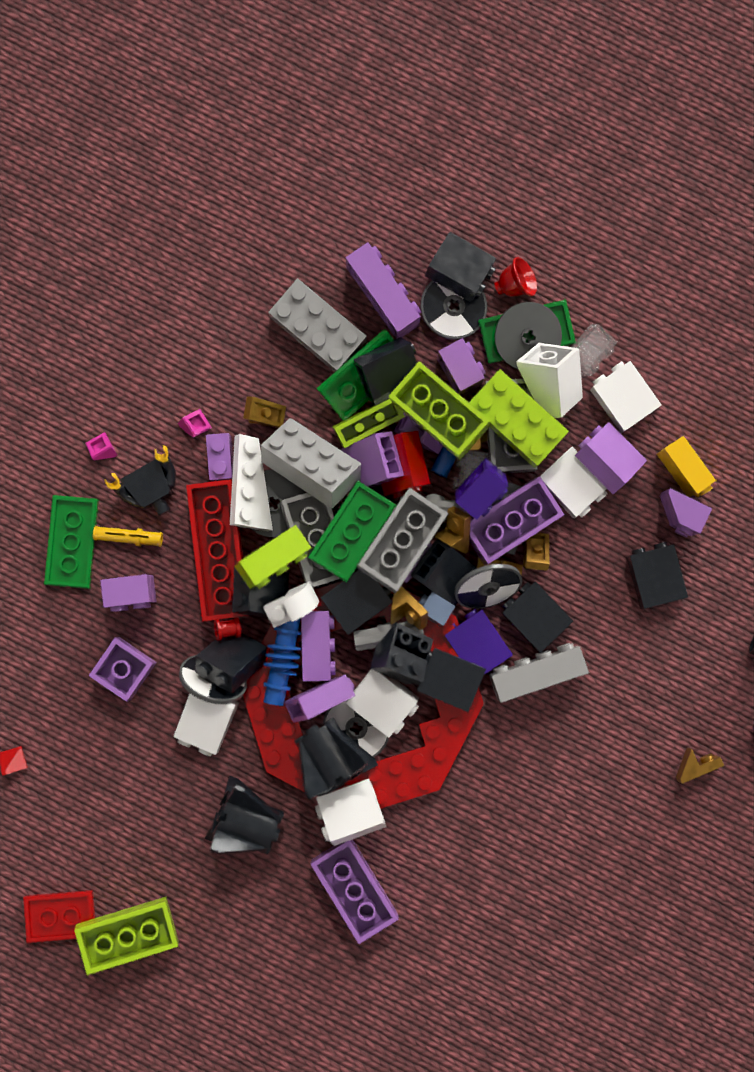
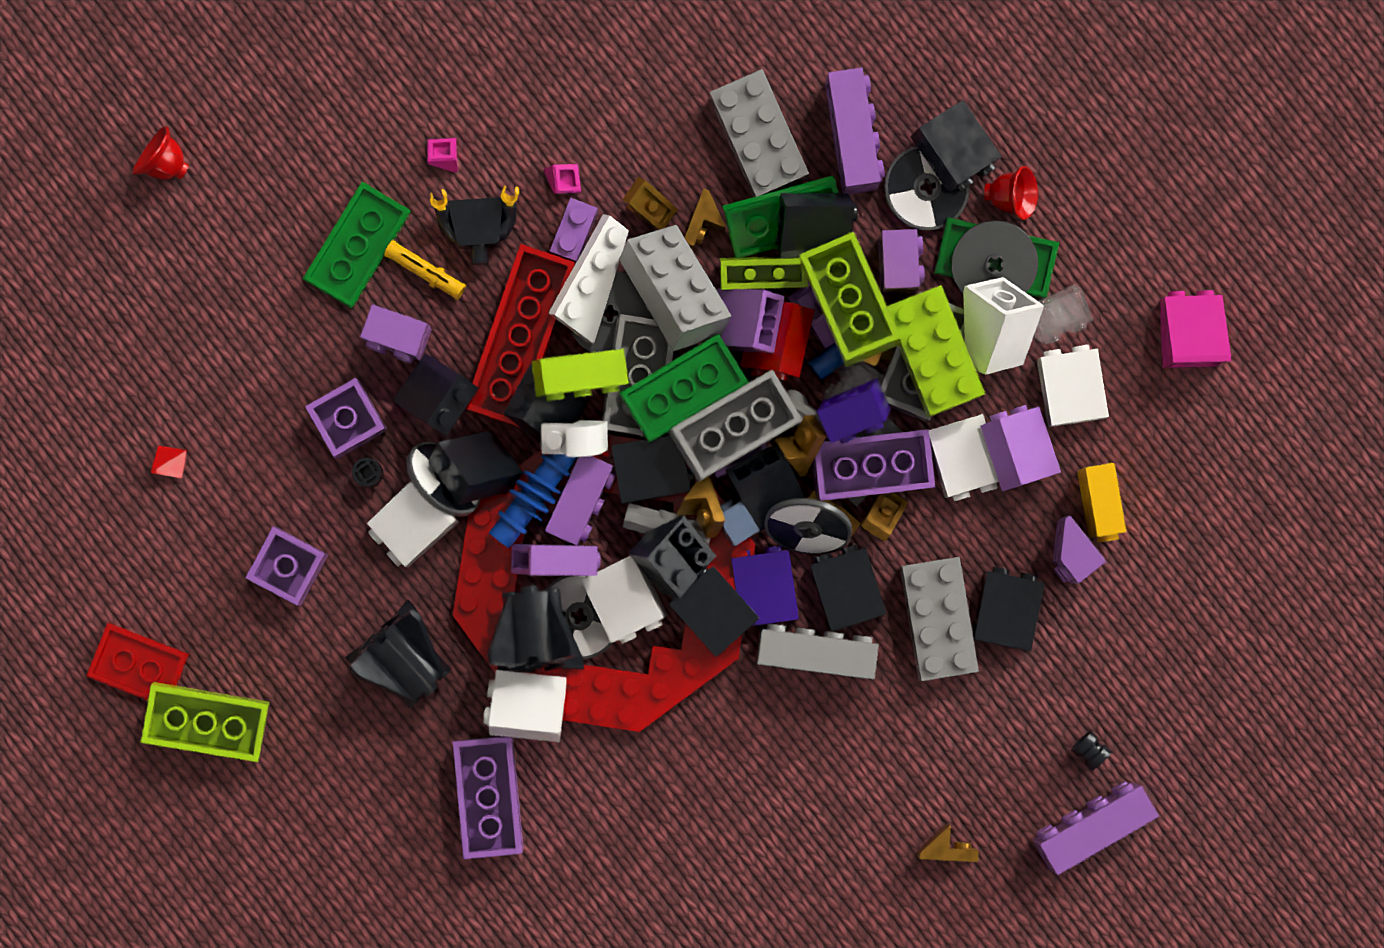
camera: 15 degrees right, 0 degrees up
(131, 795) = (287, 566): none -> medium lavender brick
(159, 697) = (371, 475): none -> black wheel
(178, 621) = (435, 394): none -> black brick
(227, 628) = (488, 429): red bush -> none
(306, 400) = (705, 213): none -> pearl gold slope
(611, 606) = (939, 619): none -> light grey brick
(691, 315) = (1193, 330): none -> dark pink slope

